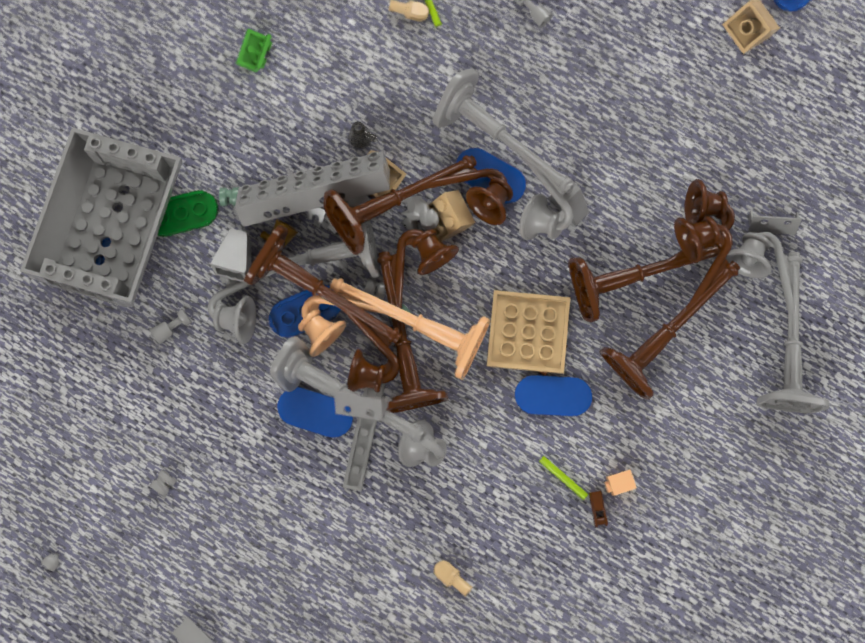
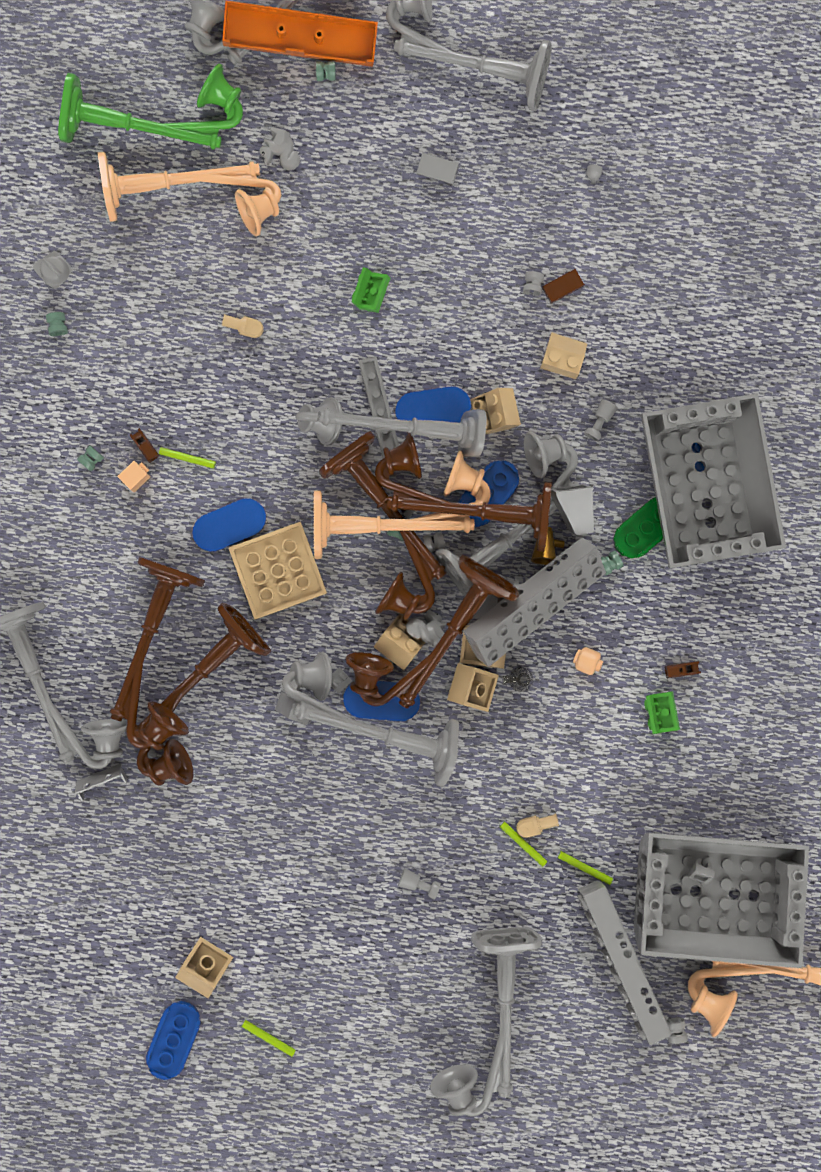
camera: 150 degrees right, 5 degrees up
(137, 468) = (563, 286): none -> reddish brown tile
(170, 401) = (564, 356): none -> tan slope
(219, 78) = (679, 670): none -> reddish brown bar
(256, 382) = (499, 408): none -> tan slope
(294, 122) = (588, 661): none -> light nougat head
(316, 551) = (370, 290): none -> bright green bracket
(360, 405) = (389, 417): light grey piece -> none
(406, 147) = (472, 687): none -> tan slope
(516, 209) = (340, 680): none -> light grey tile
(654, 520) = (86, 461): none -> sand green wheel

